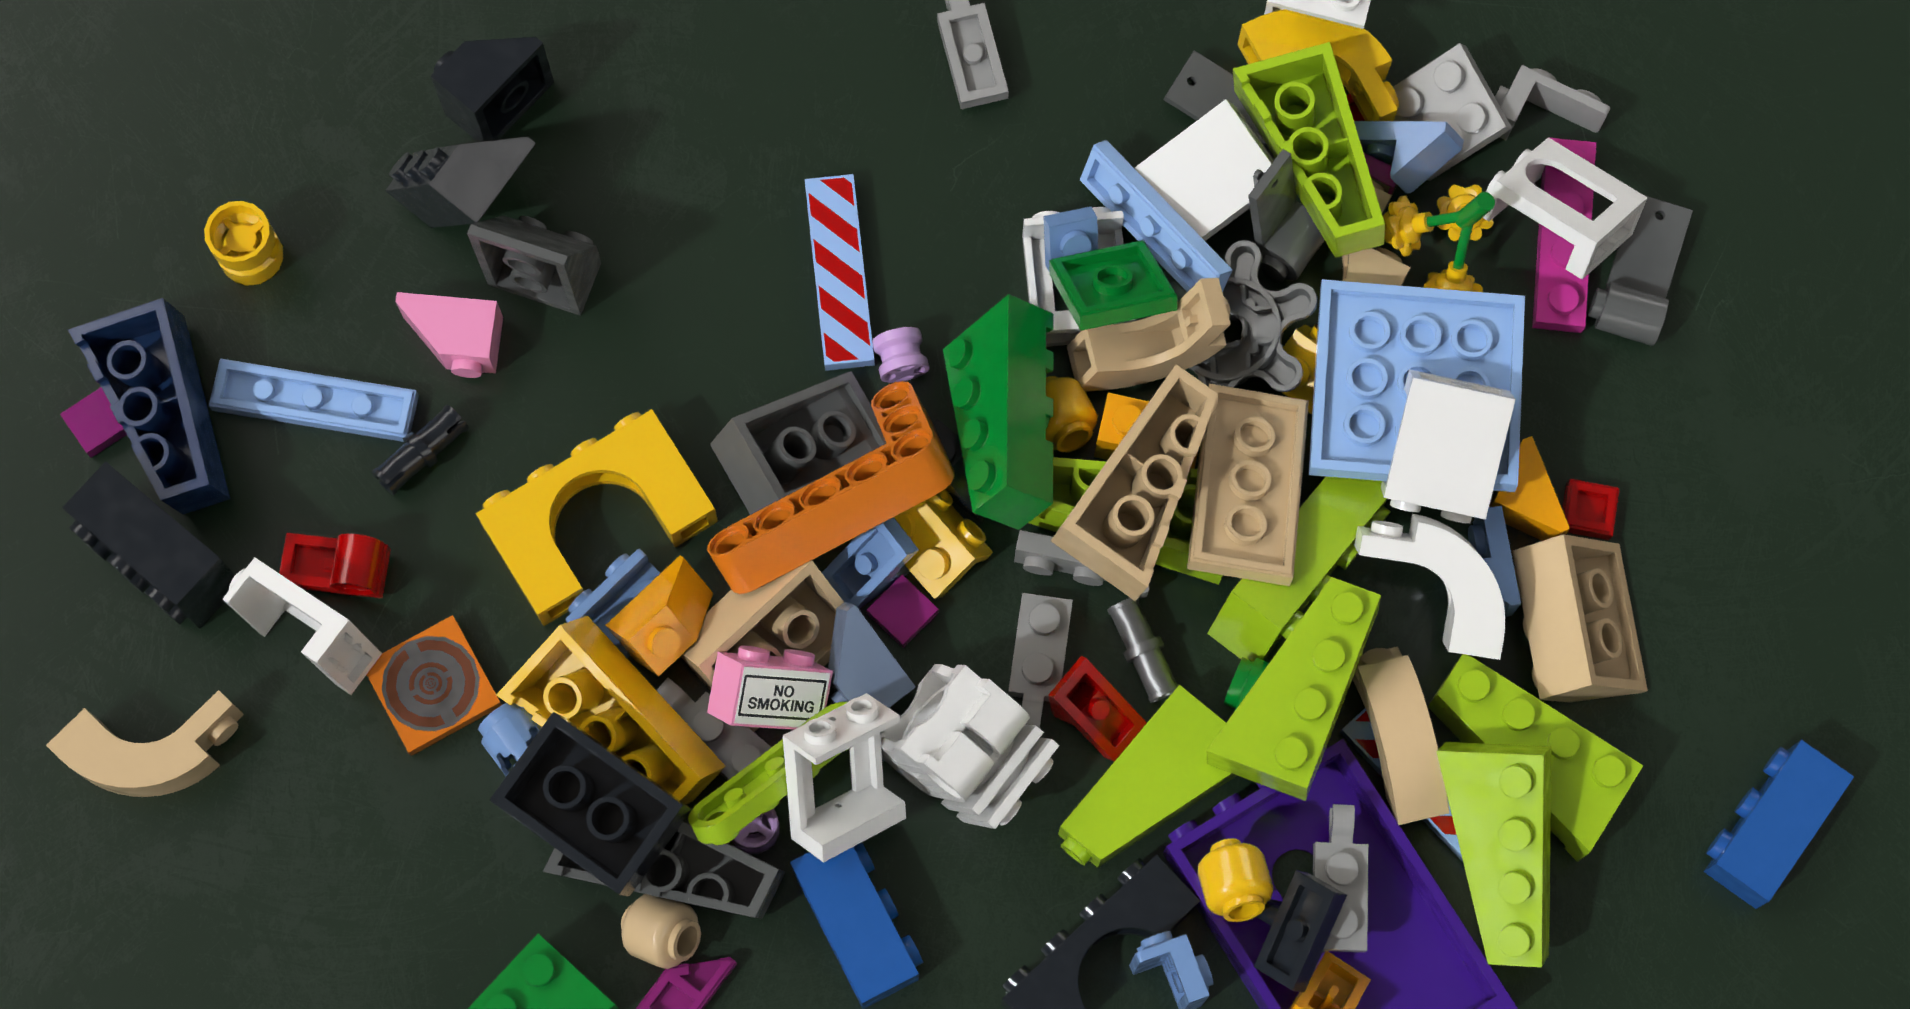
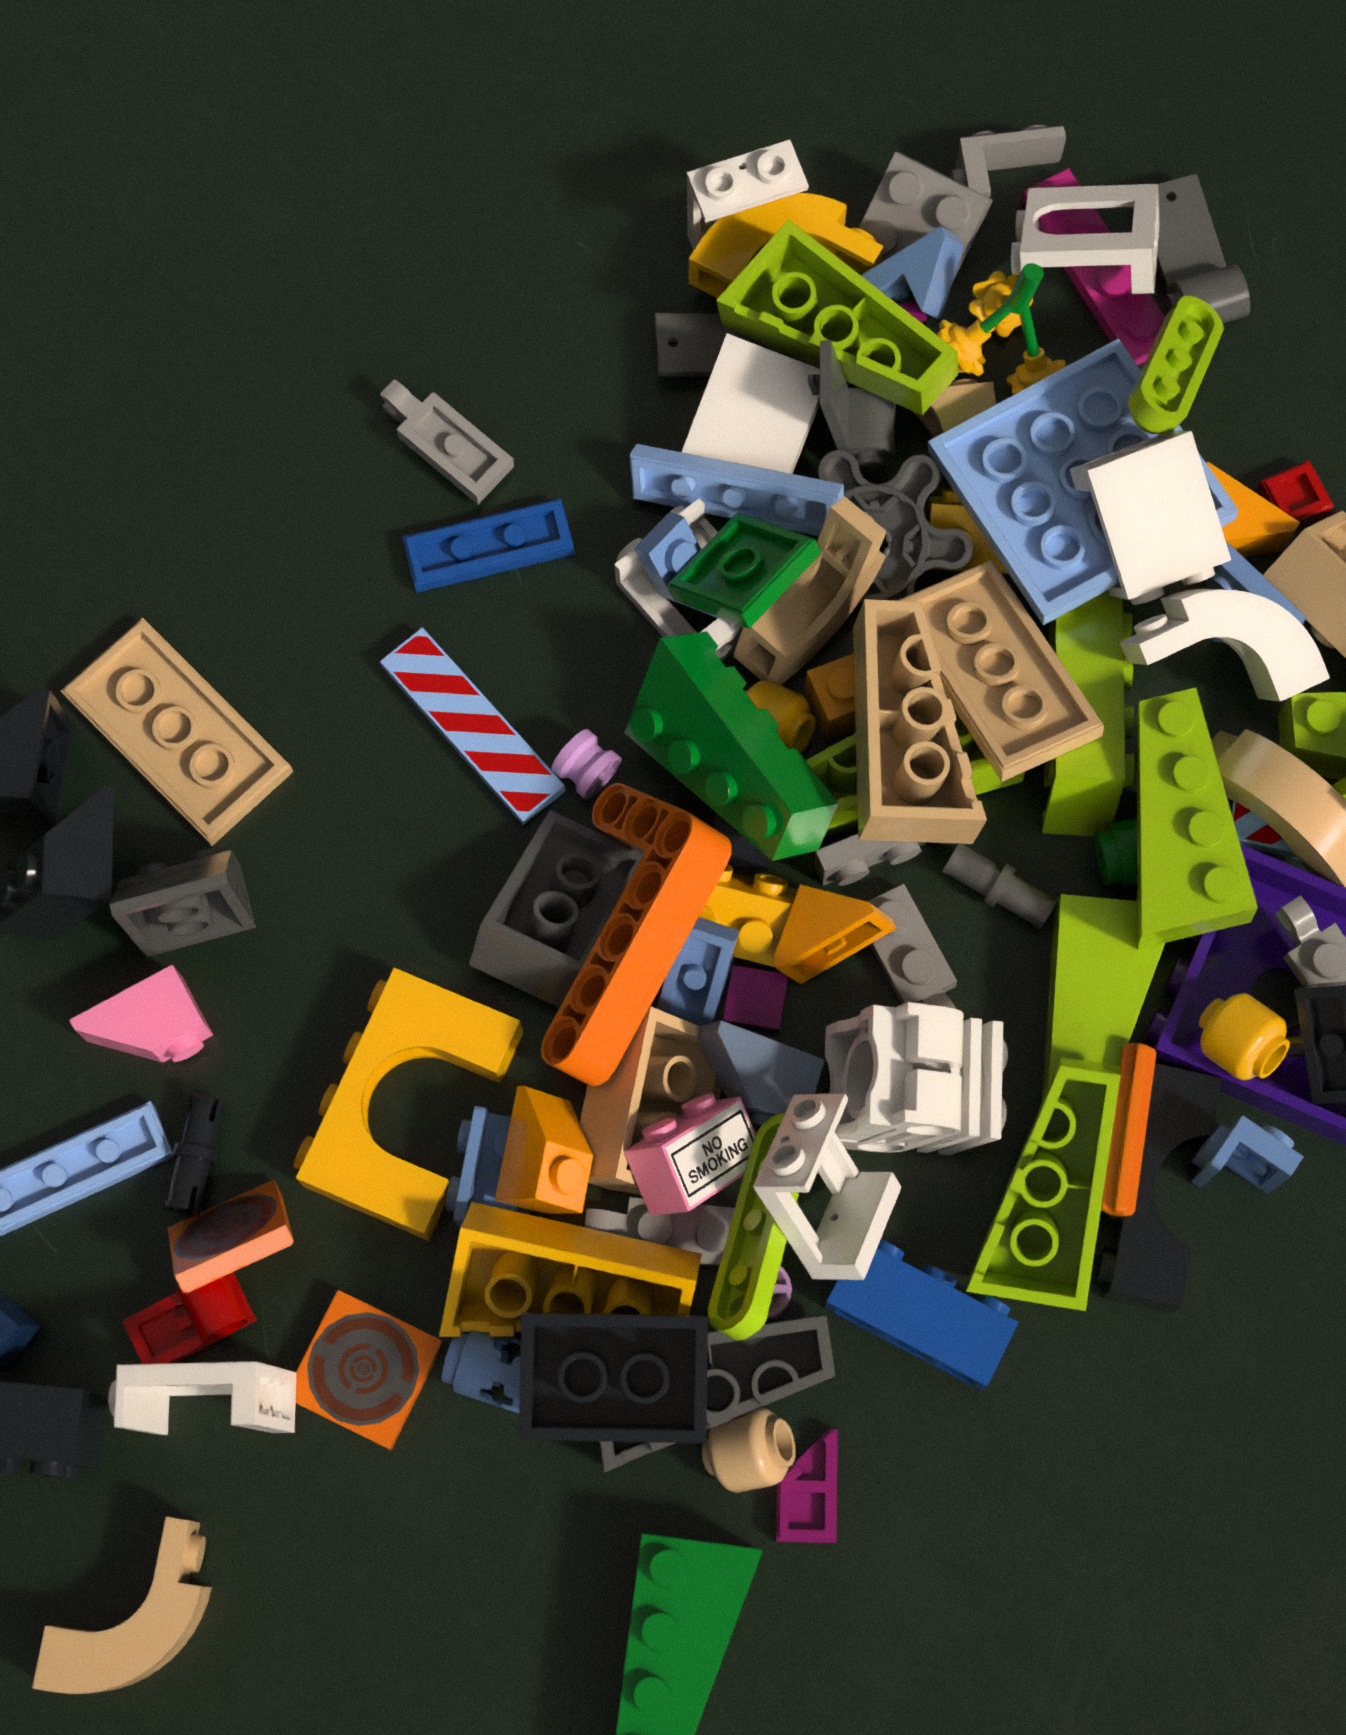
camera: 30 degrees left, 0 degrees up
(400, 523) = (229, 1236): none -> tile
(623, 134) = (177, 731): none -> tan tile
(947, 145) = (488, 545): none -> blue tile
(984, 595) = (825, 931): none -> light orange slope
(1009, 900) = (1051, 1208): none -> lime wedge
(1095, 709) = (1001, 969): red slope -> none
(1100, 889) = (1129, 1129): none -> orange axle
(1552, 344) = (1175, 366): none -> lime plate

